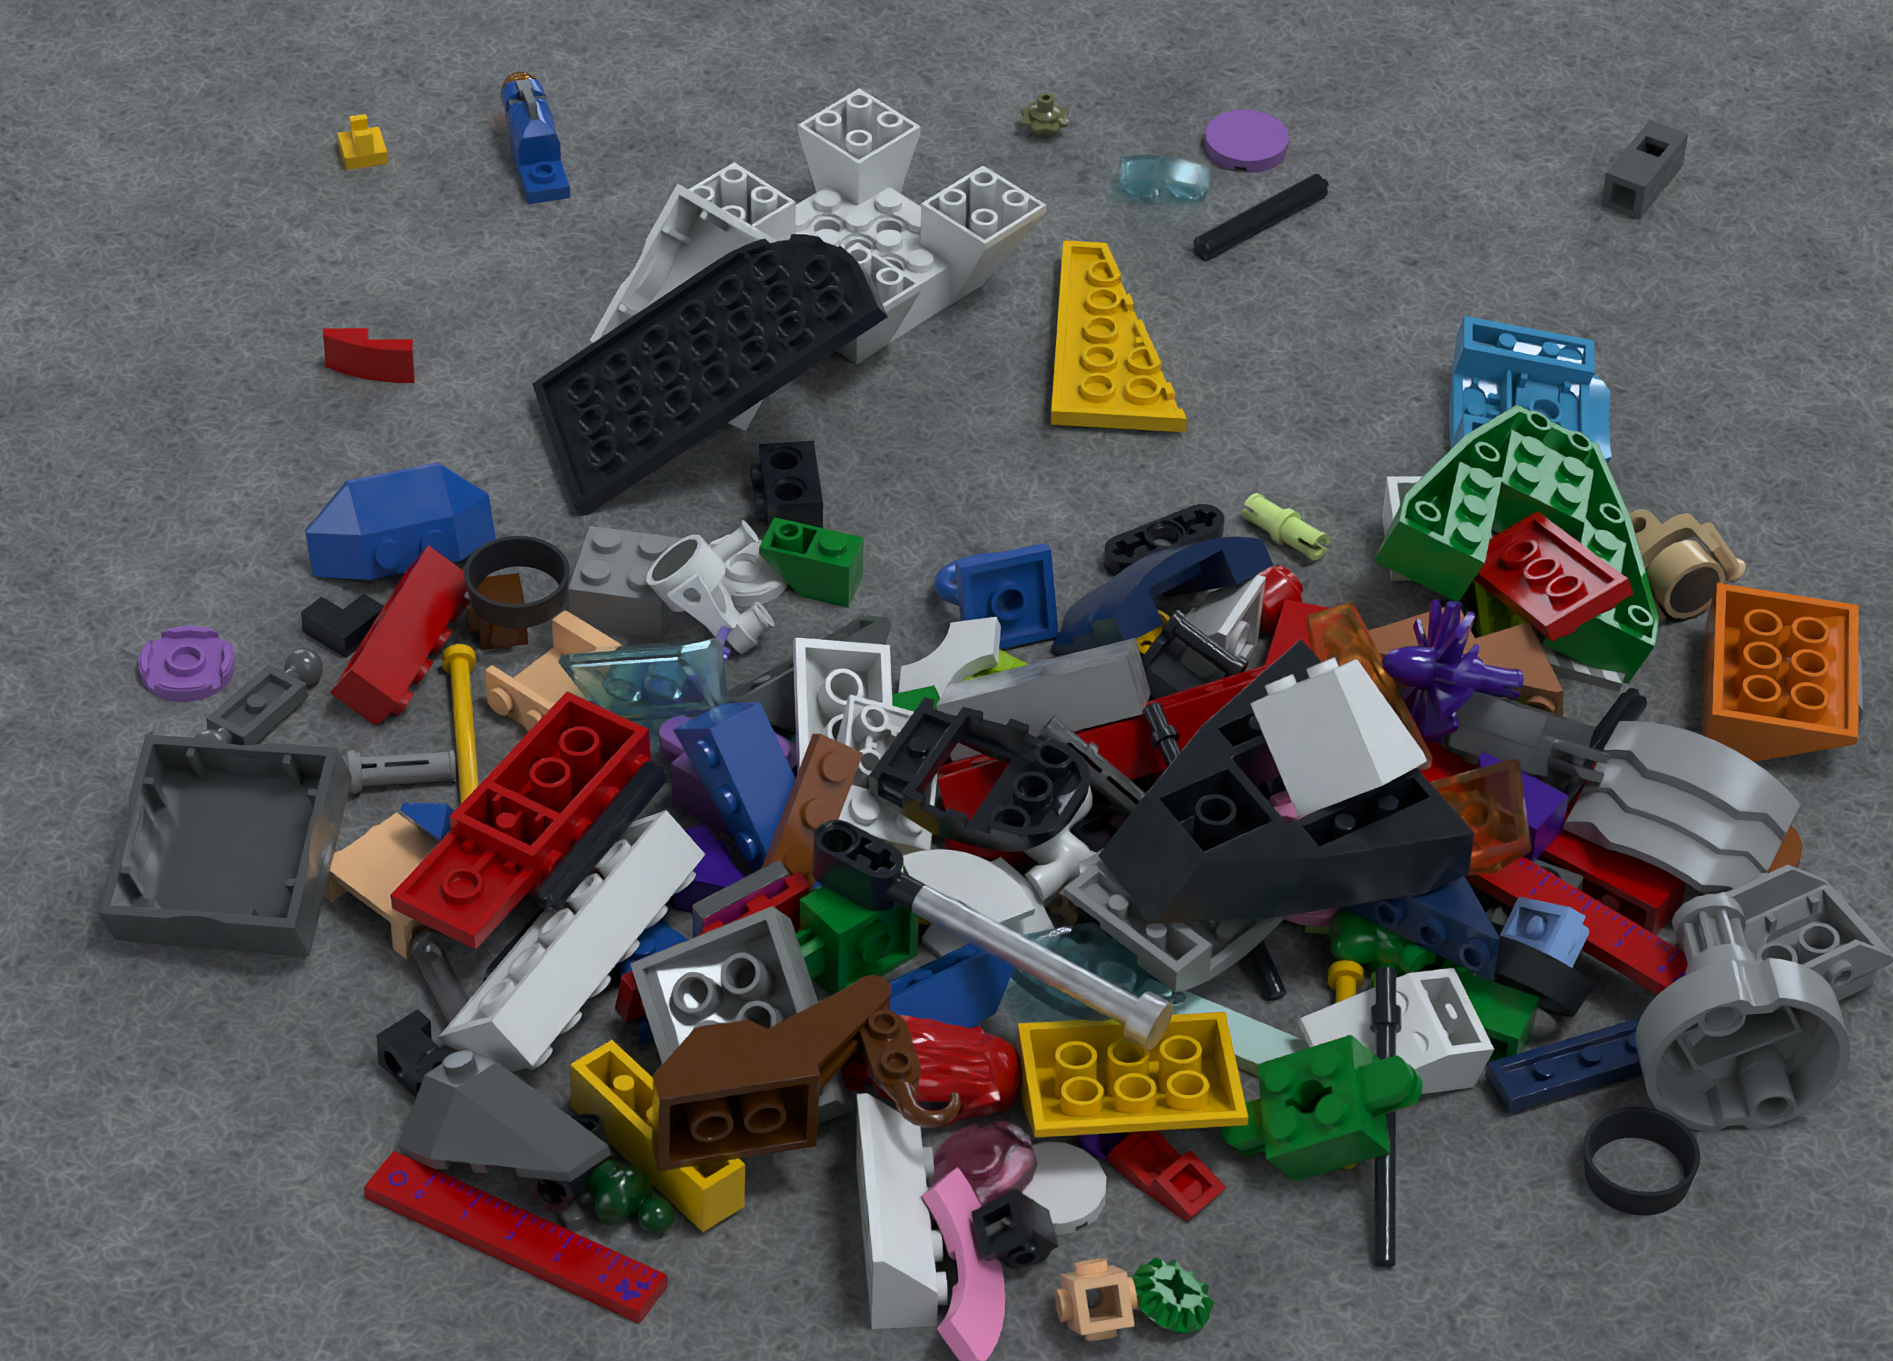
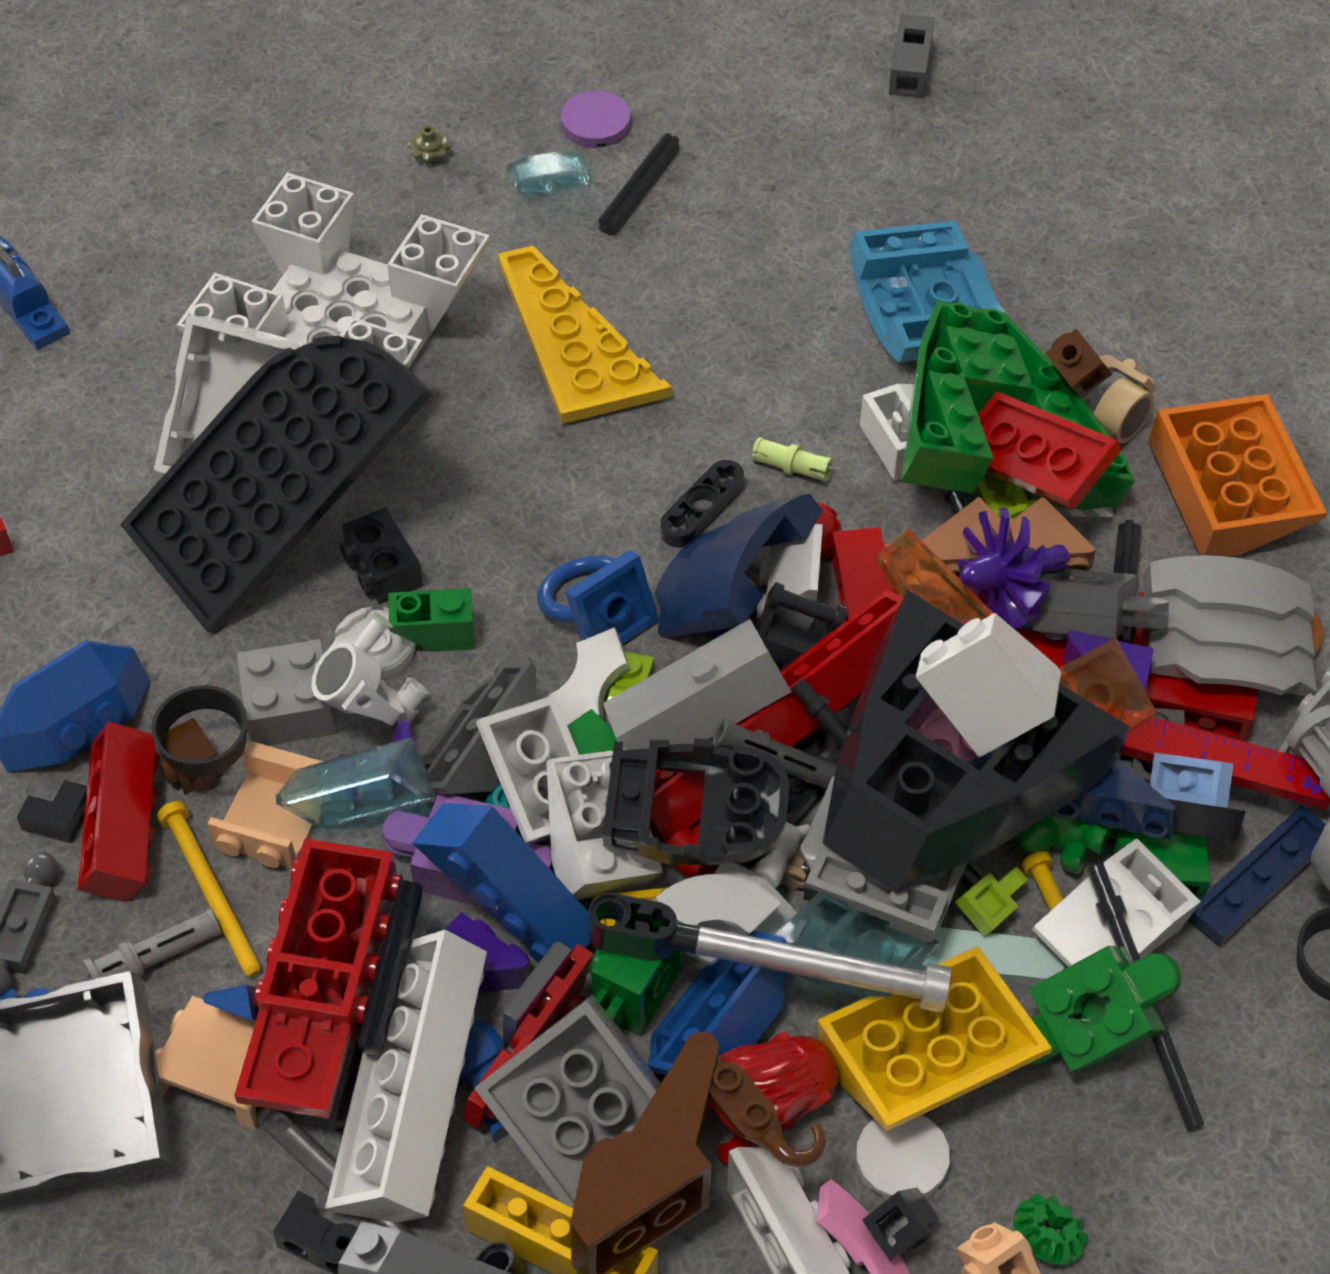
camera: 20 degrees left, 10 degrees up
(814, 799) = (562, 880): dark orange plate -> none
(989, 1158) = (852, 1157): clear pink tile -> none
(1157, 1169) = (994, 1111): red slope -> none
(1270, 990) = (990, 901): none -> lime plate
(1649, 512) = (1078, 362): none -> reddish brown brick

